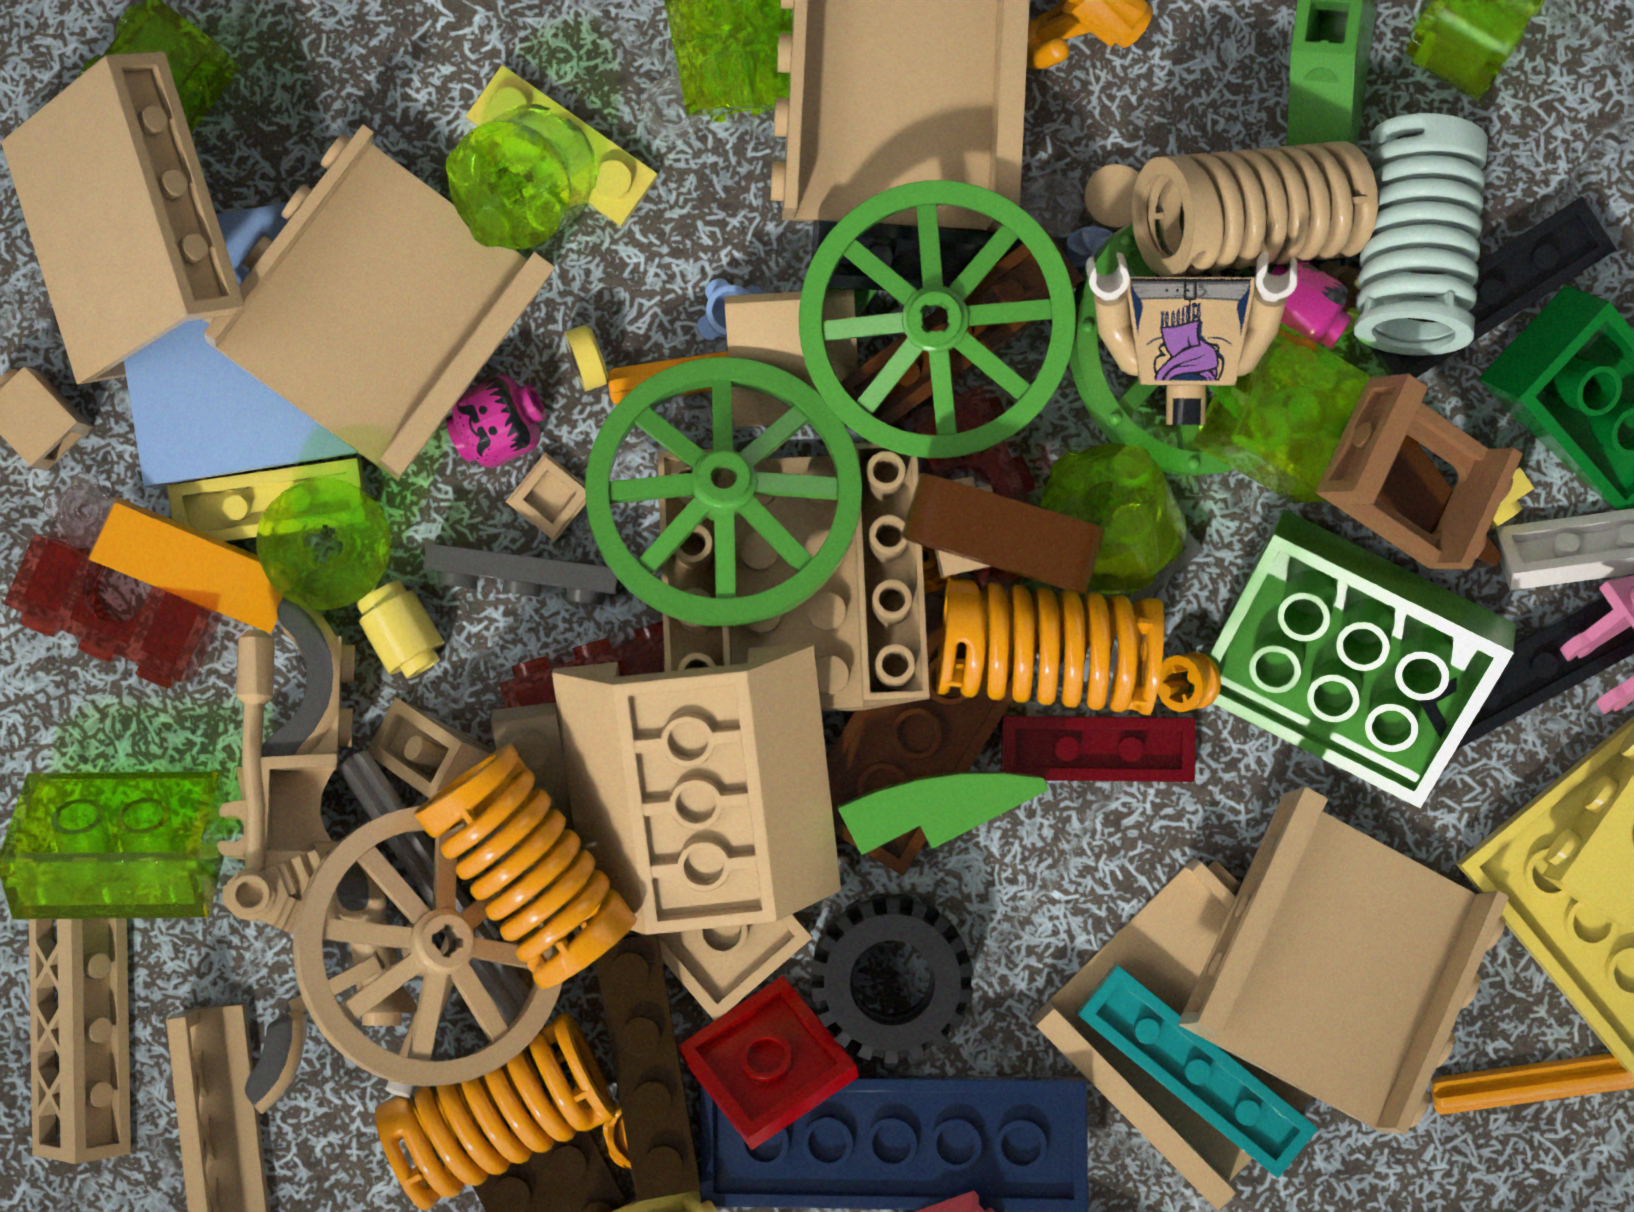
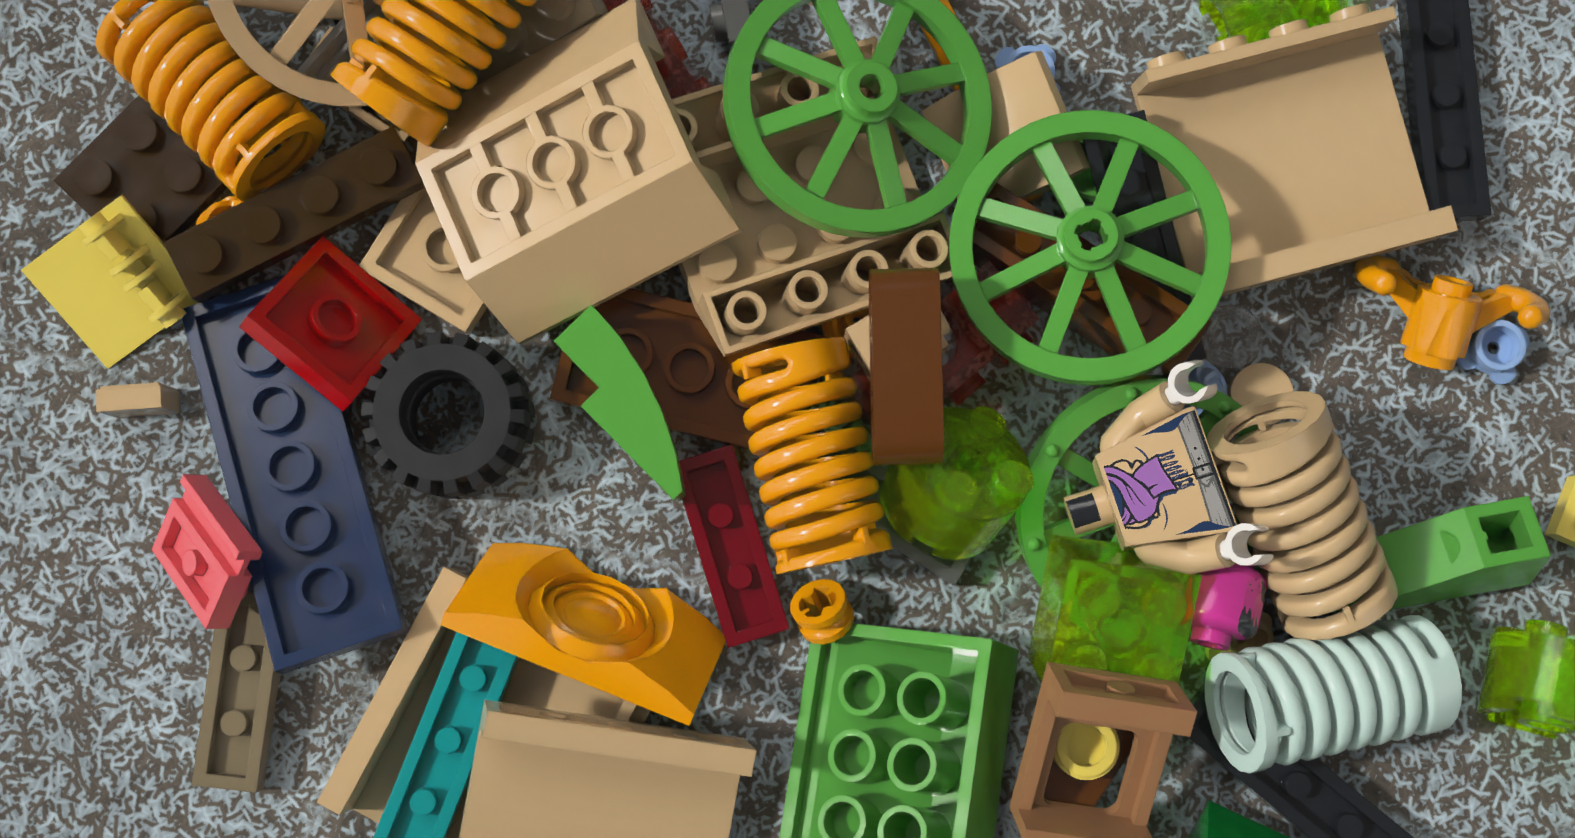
camera: 70 degrees right, 5 degrees down
(1135, 906) = (589, 627): none -> light orange slope
(1406, 481) = (1086, 750): none -> light yellow tile

